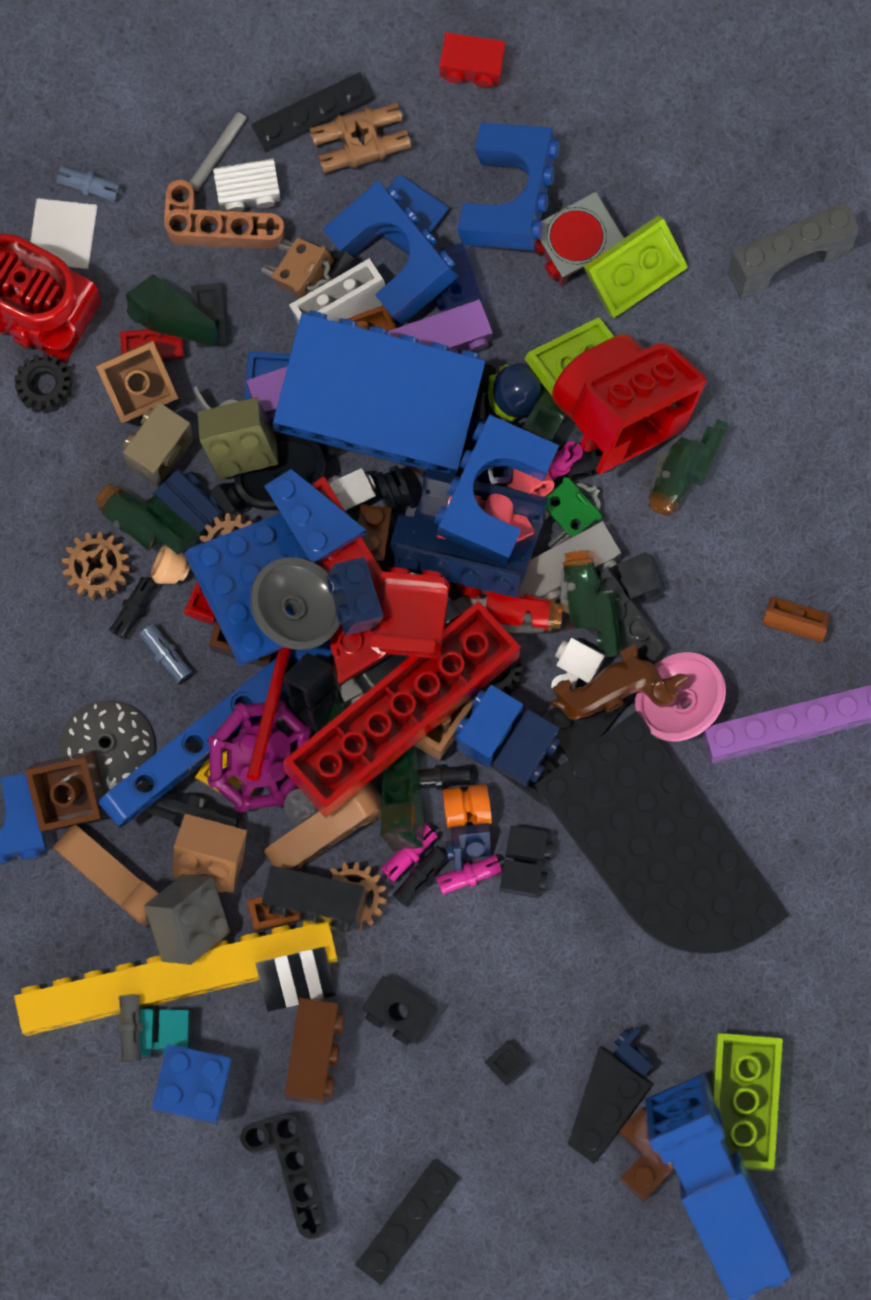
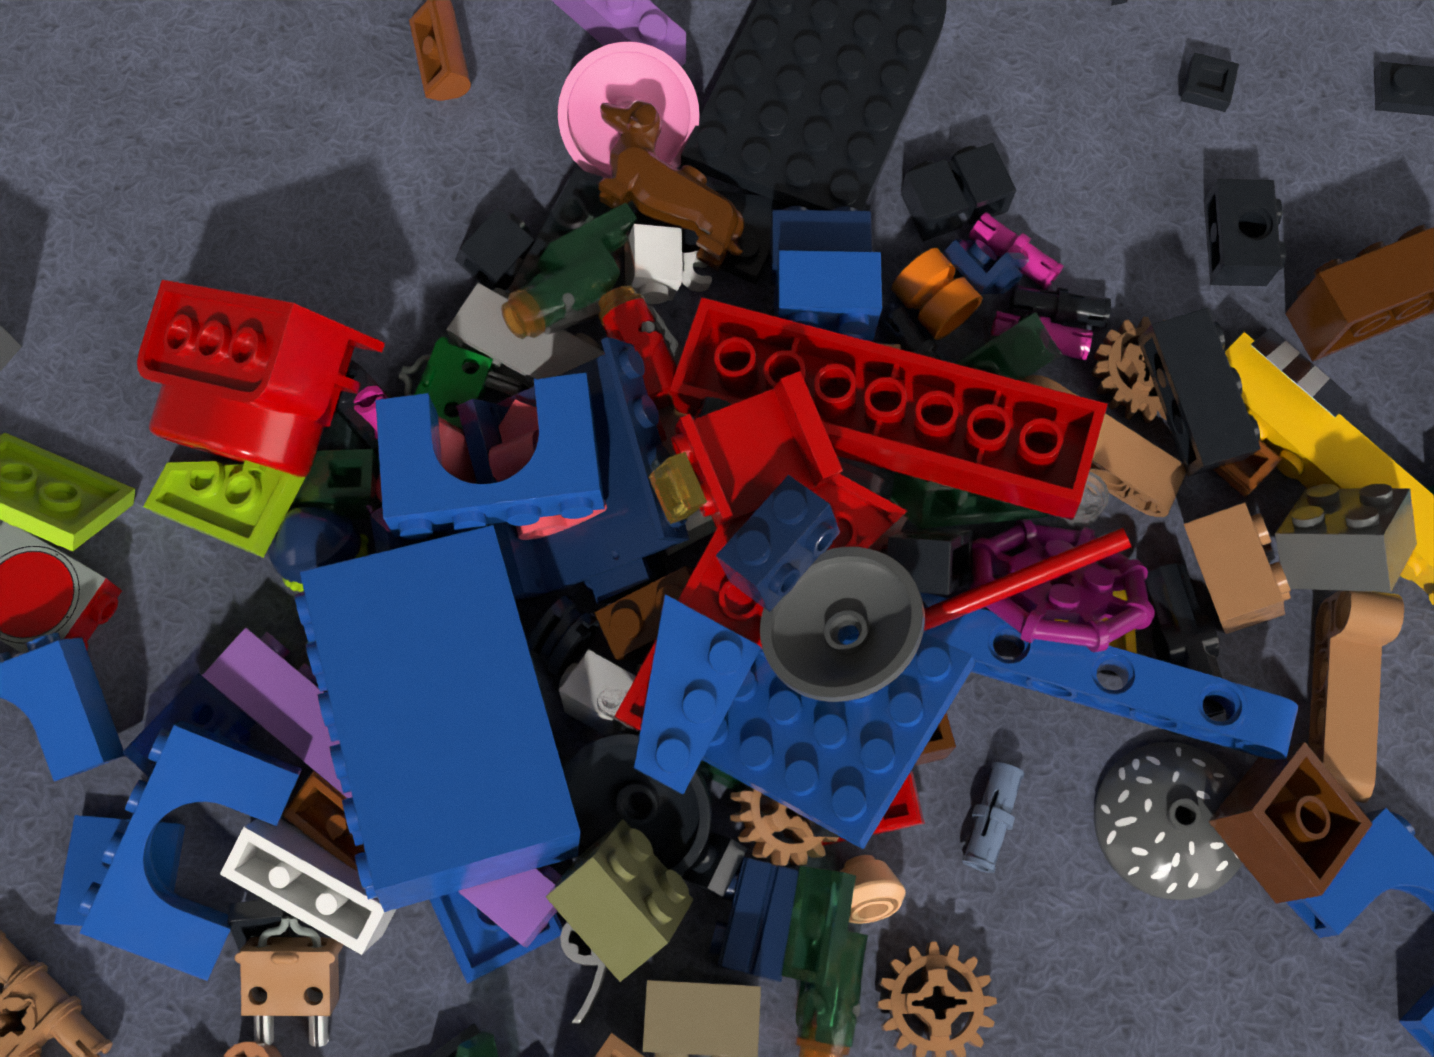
camera: 125 degrees left, 5 degrees down
(133, 608) = (959, 907): black pin -> none
(413, 561) = (677, 488): none -> clear yellow tile
(681, 464) = (297, 275): clear green plate -> none

